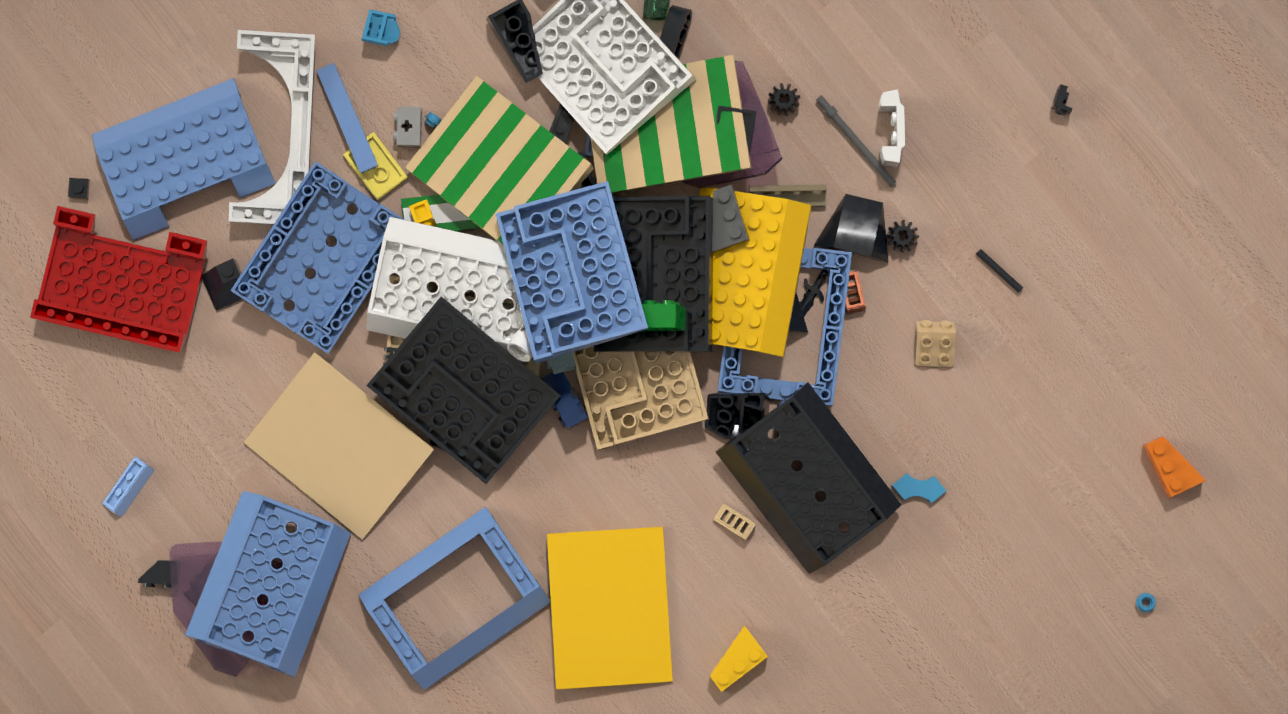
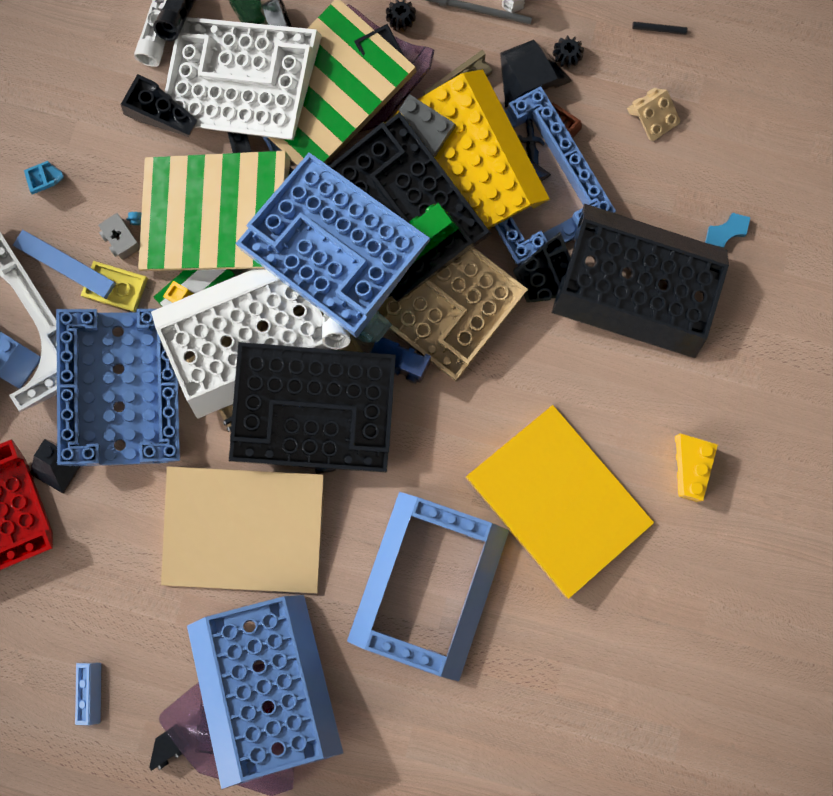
camera: 45 degrees left, 5 degrees down
(737, 515) = (623, 359): tan slope -> none

